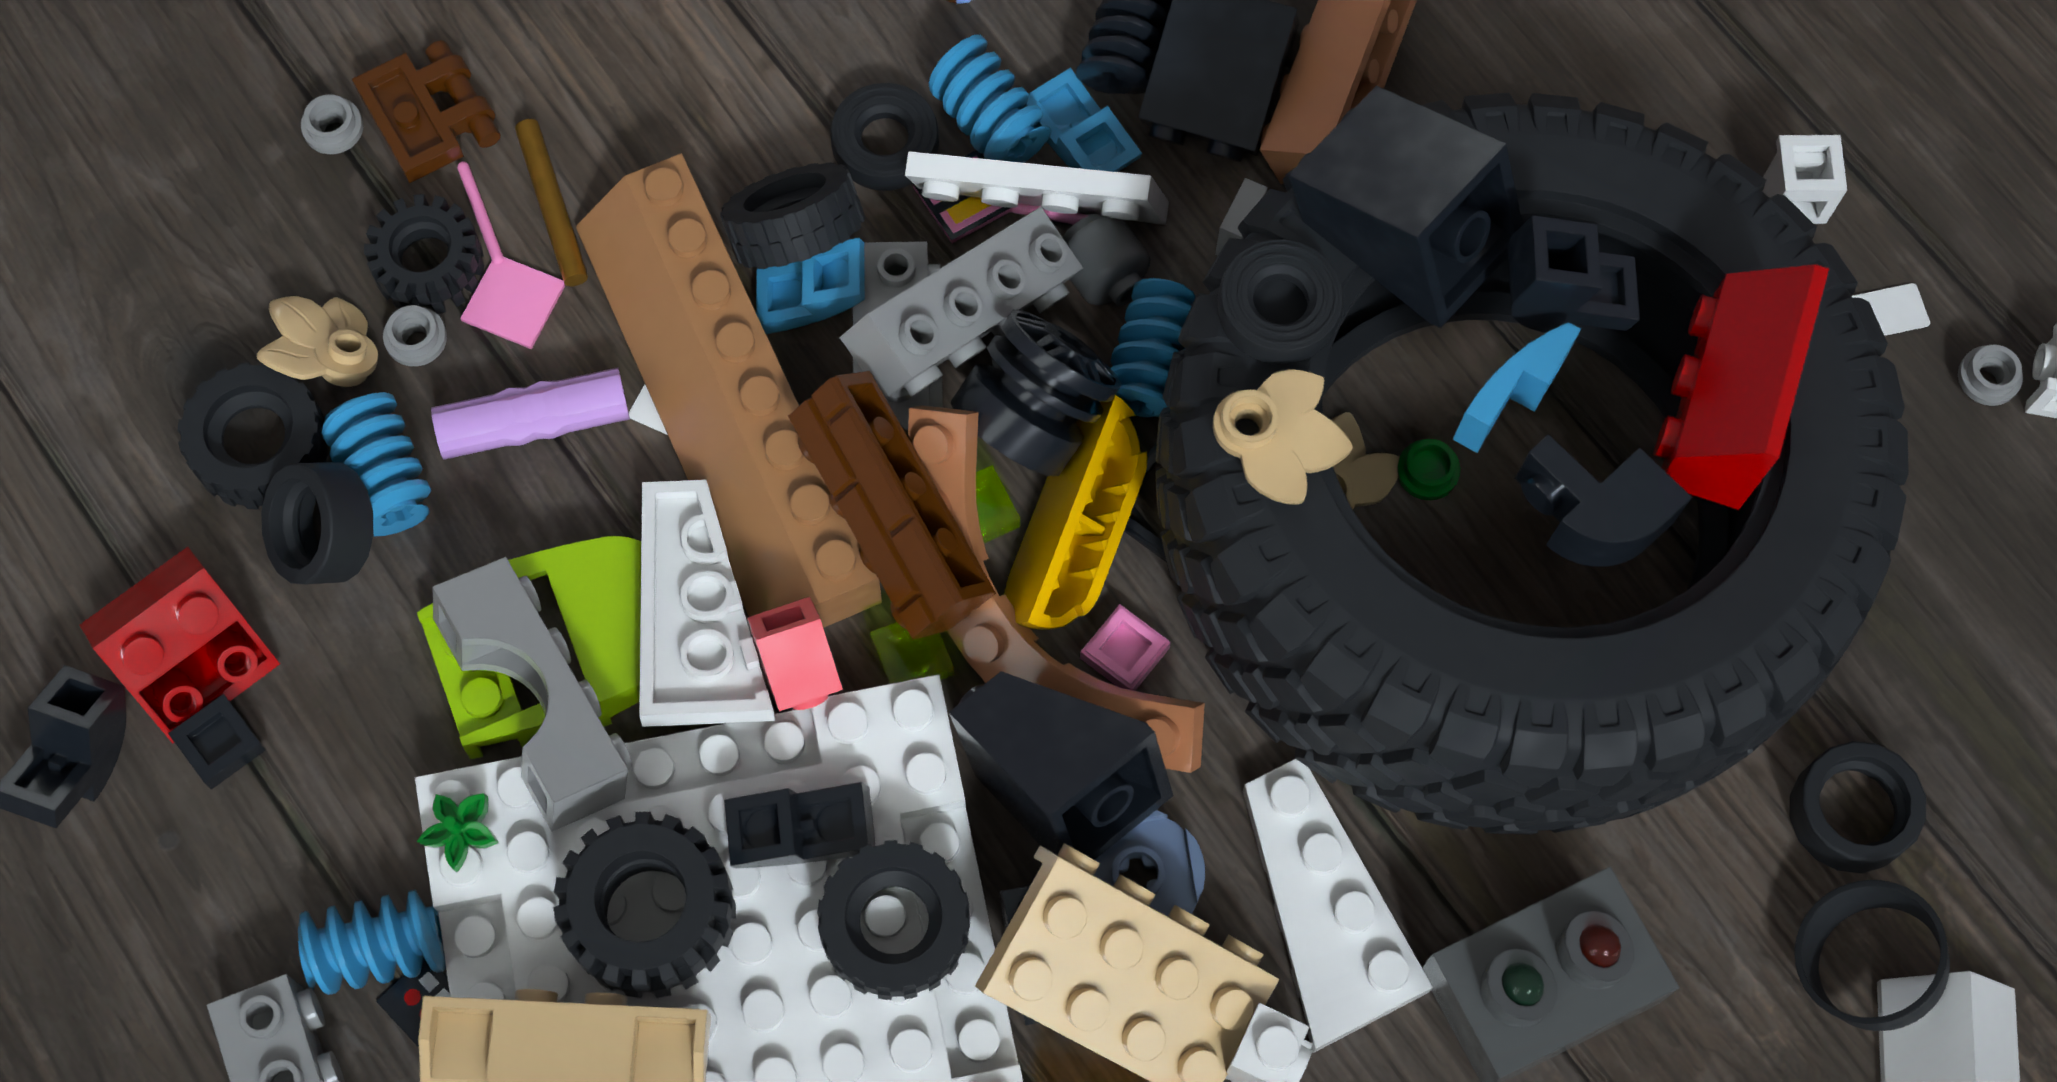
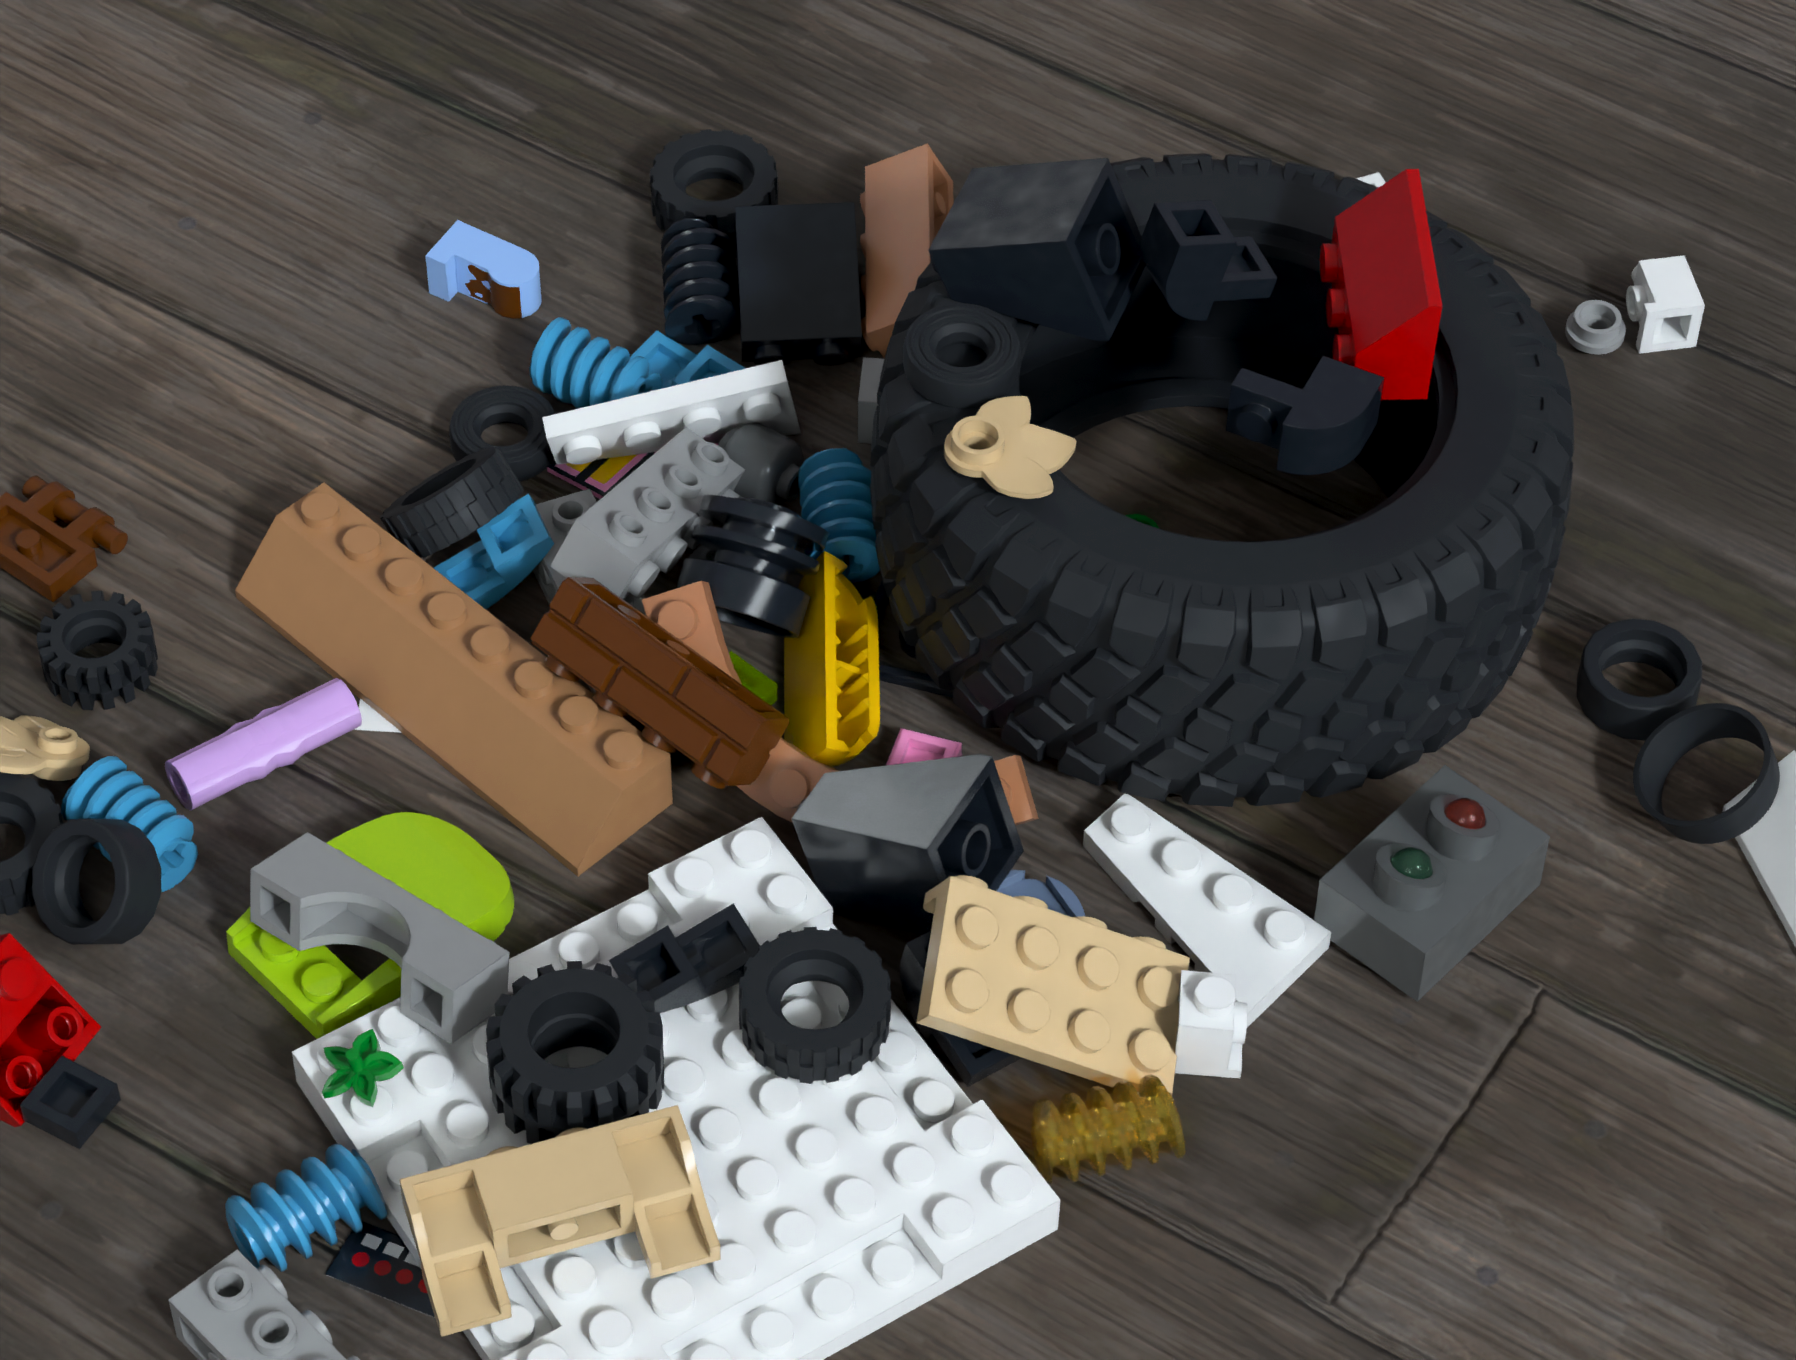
camera: 20 degrees left, 20 degrees down
(409, 321) = (116, 718): light grey plate -> none
(511, 296) = (191, 666): bright pink piece -> none
(551, 202) = (202, 578): pearl gold bar -> none
(693, 625) = (502, 847): white wing -> none
(795, 655) = (617, 834): coral slope -> none
(909, 658) = (717, 815): clear neon green plate -> none
(1521, 378) = (1195, 352): dark azure slope -> none

